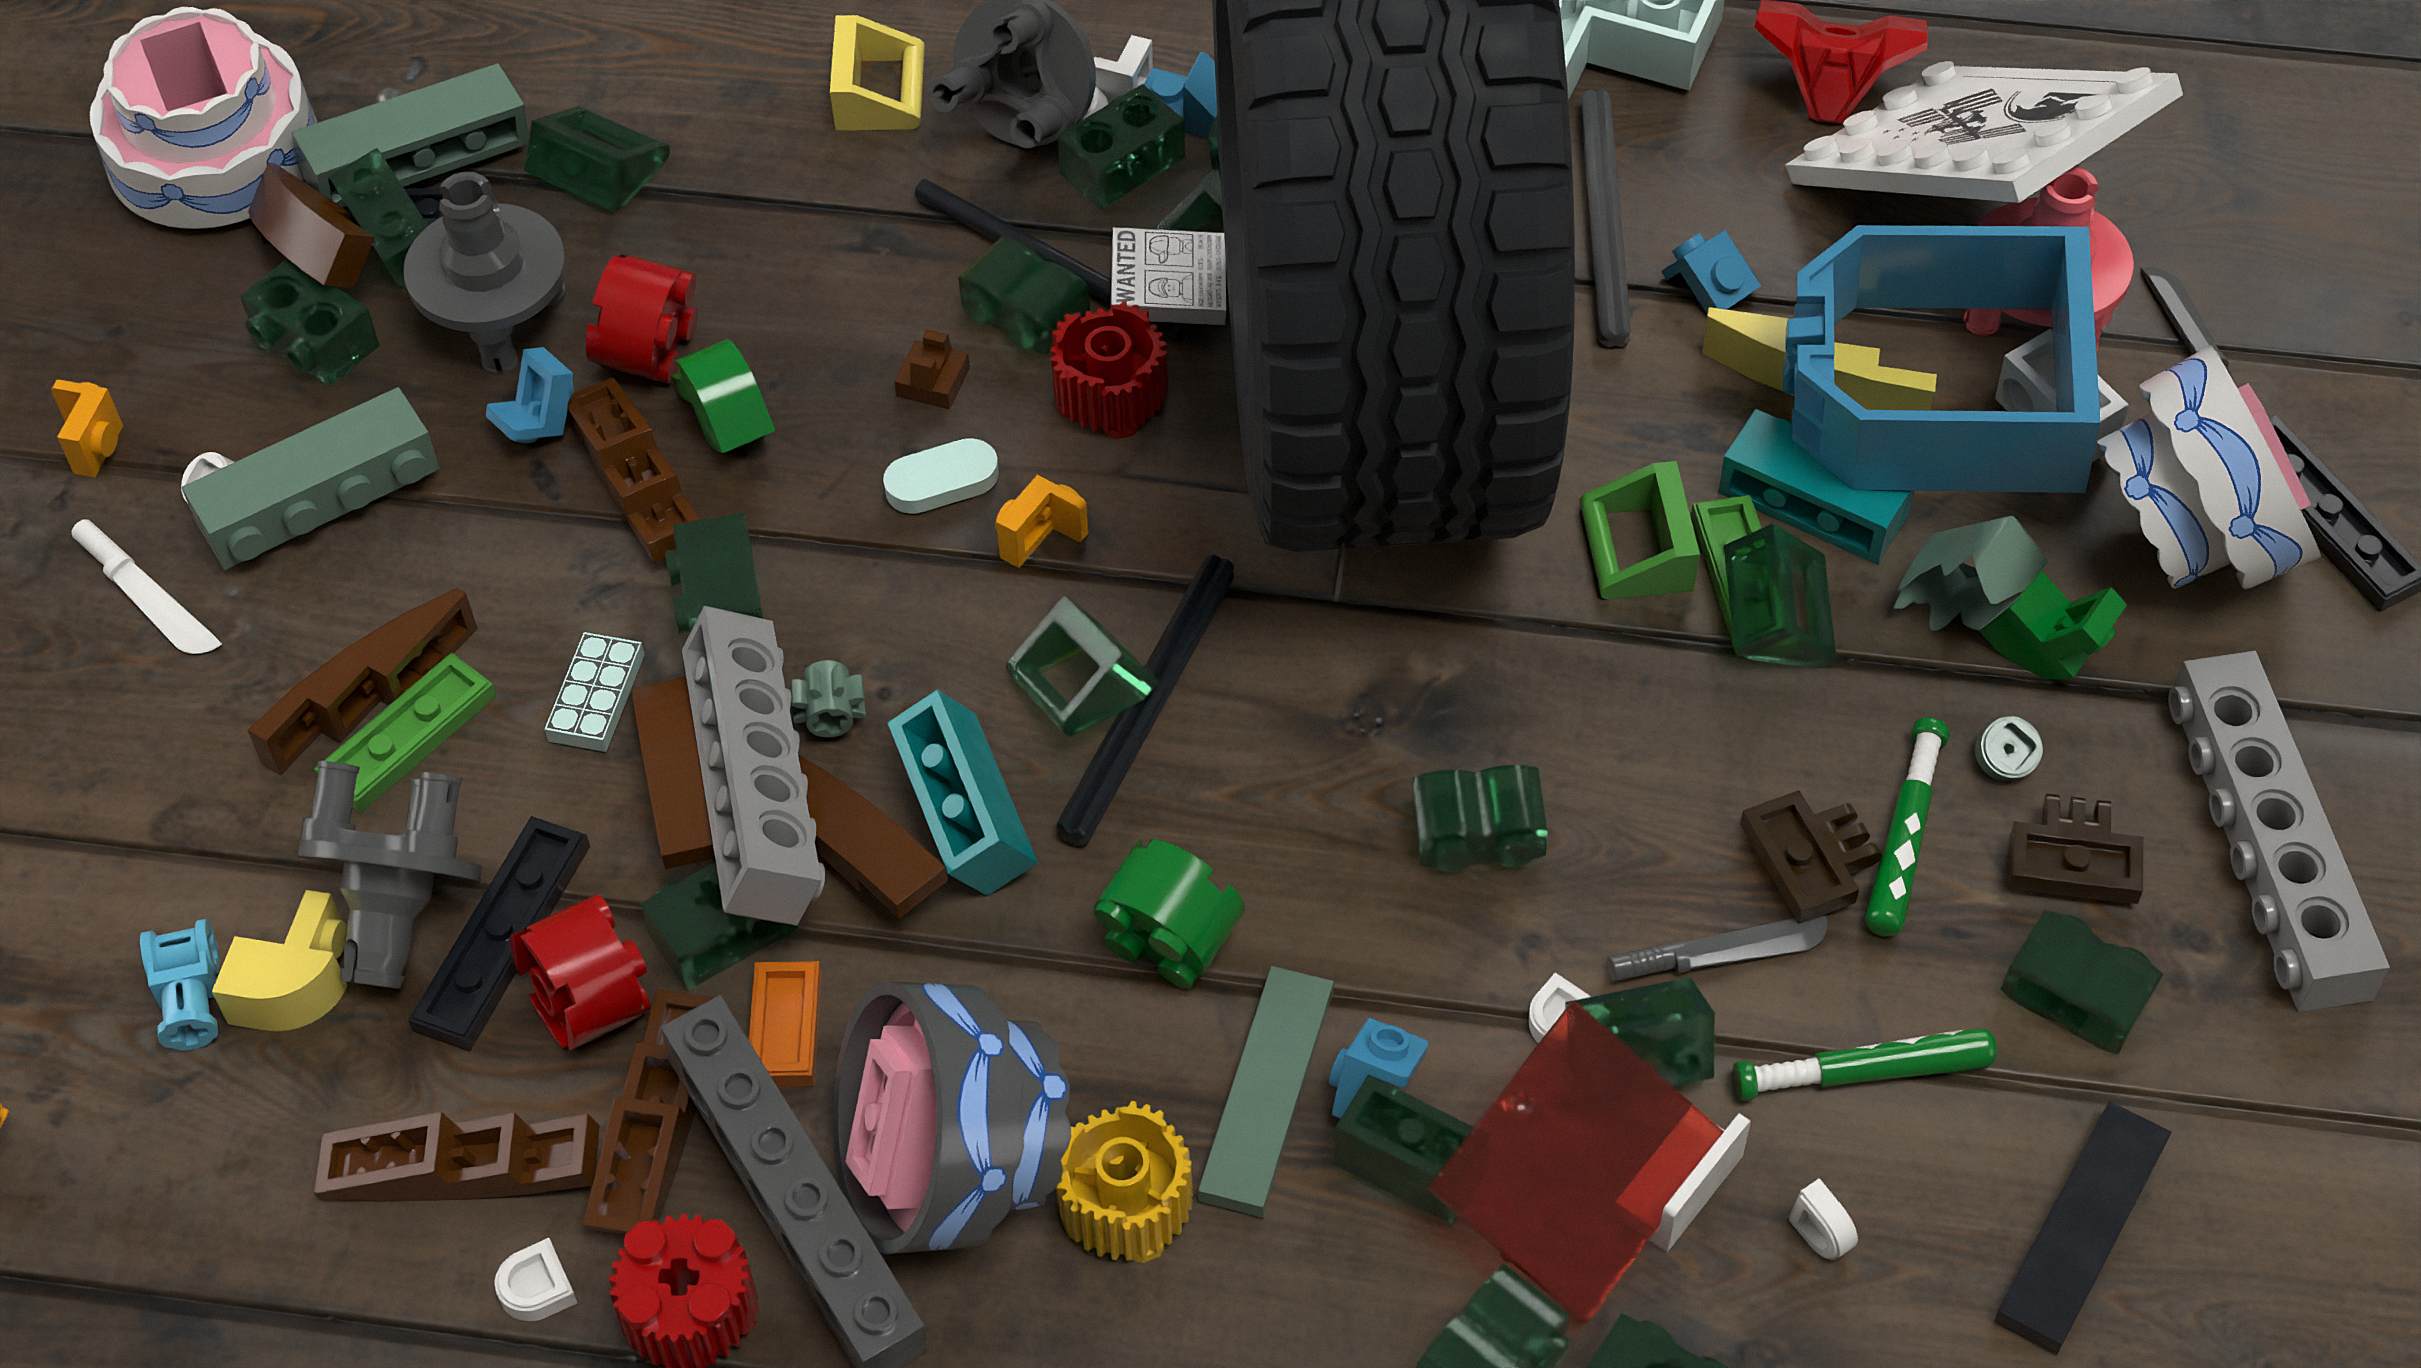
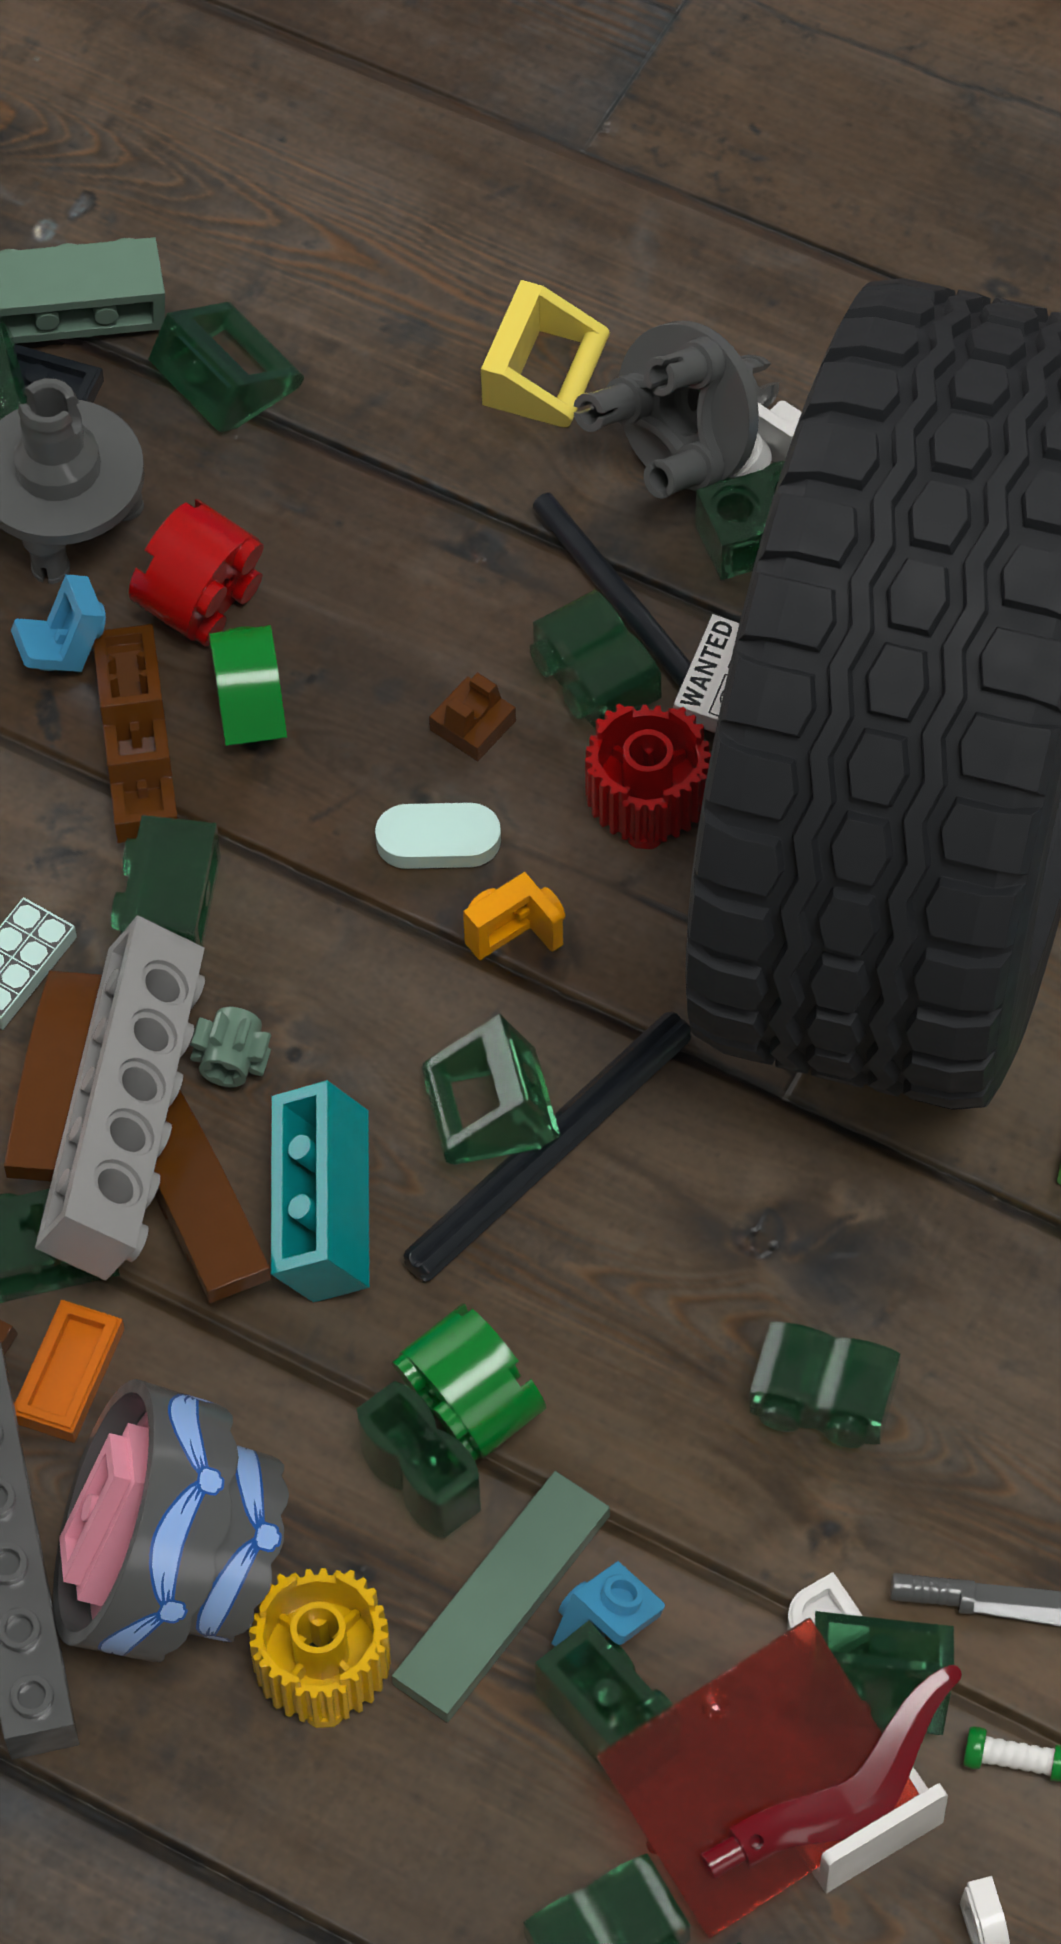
camera: 20 degrees right, 5 degrees up
(1148, 991) = (422, 1461): none -> clear green brick
(1665, 1162) = (849, 1806): none -> dark red piece

